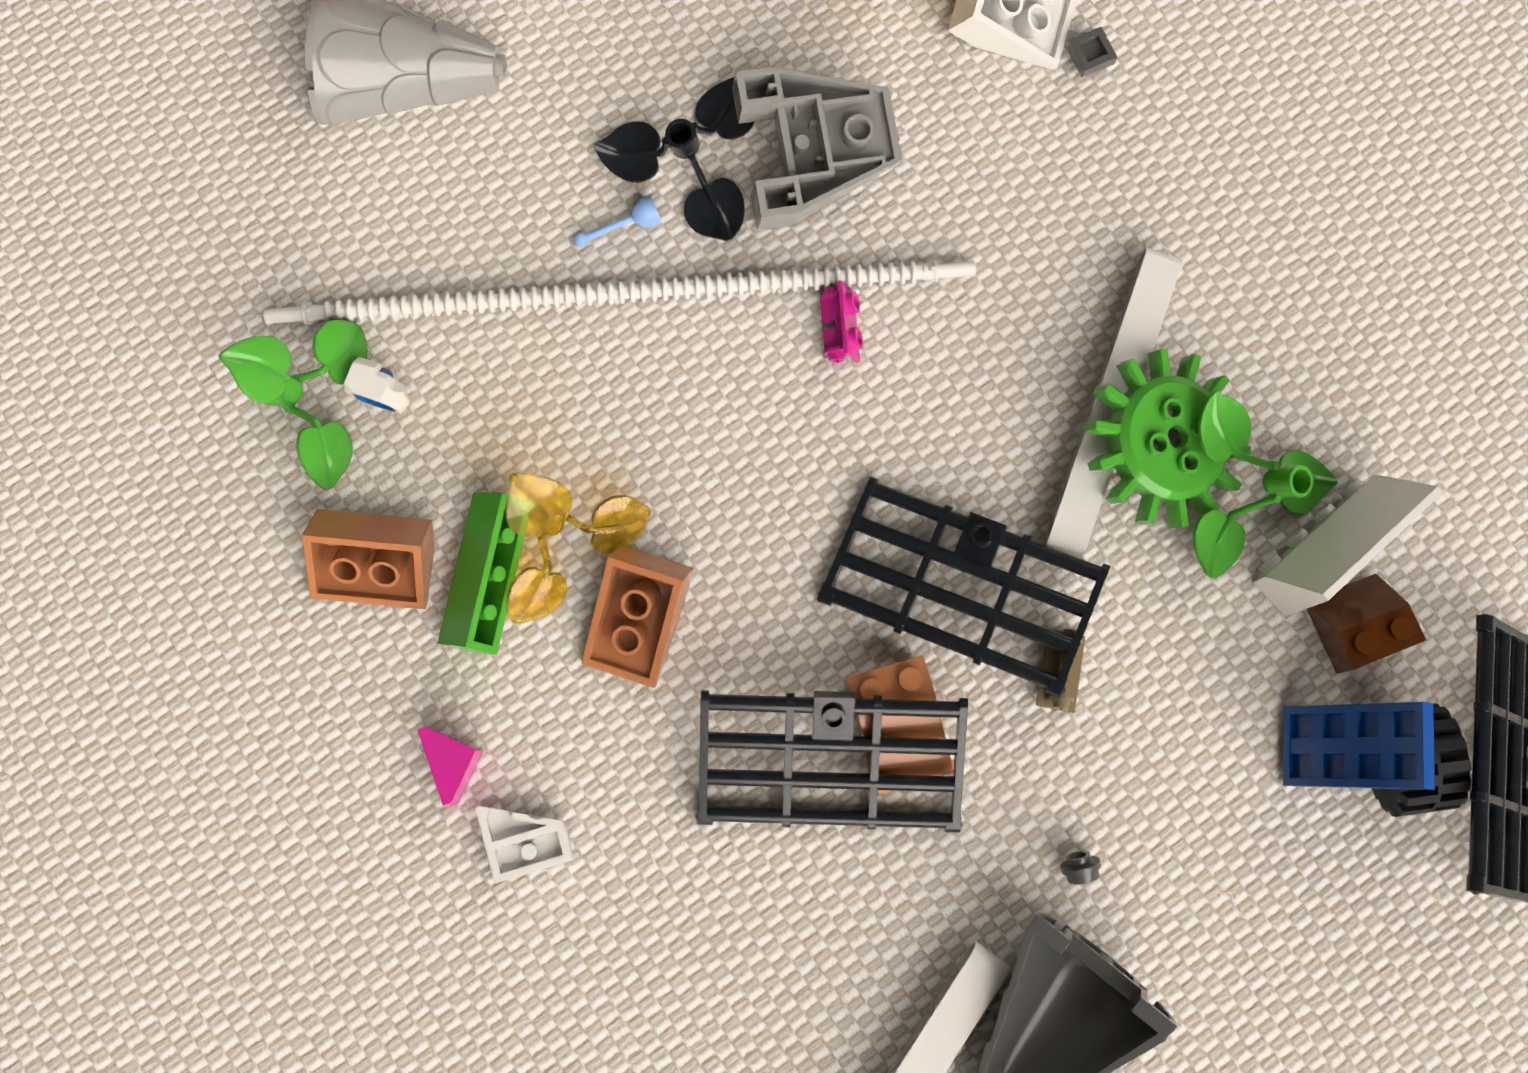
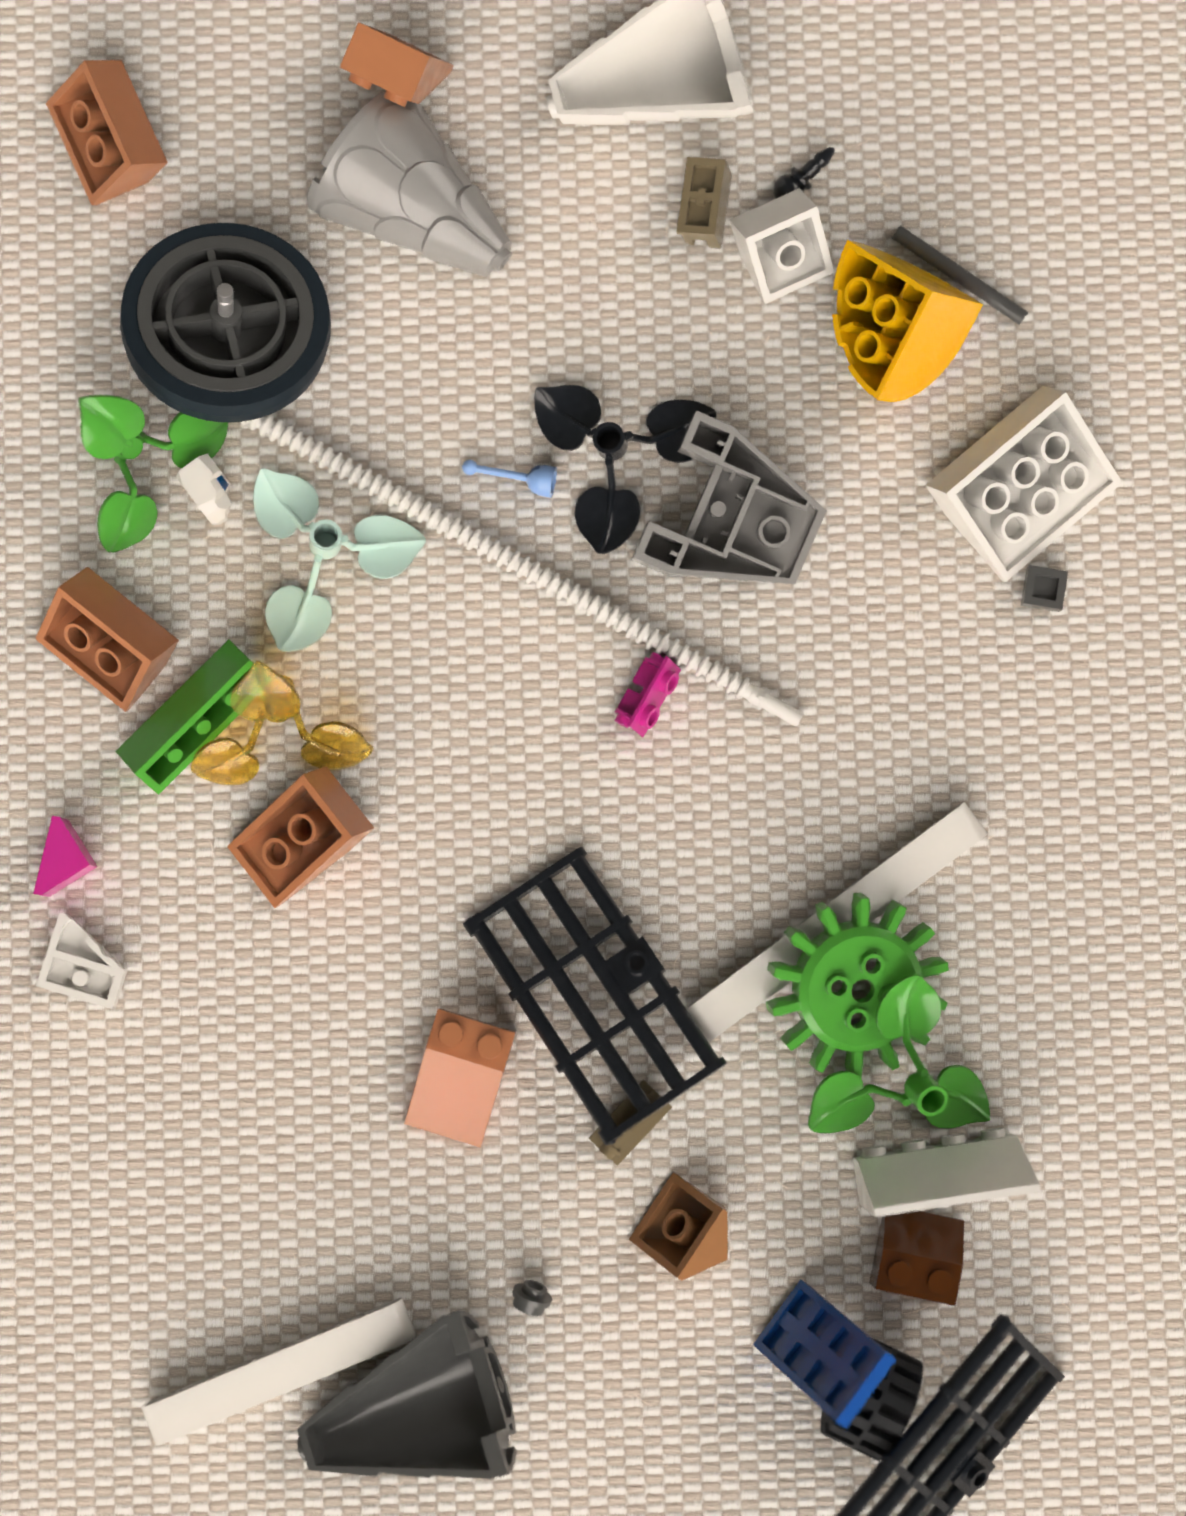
camera: 30 degrees right, 5 degrees up
(112, 160) = (105, 130): none -> nougat slope
(306, 243) = (225, 322): none -> dark grey wheel
(453, 357) = (289, 502): none -> light aqua plant
(832, 732) = (394, 1047): black door -> none
(1165, 726) = (683, 1229): none -> medium nougat slope

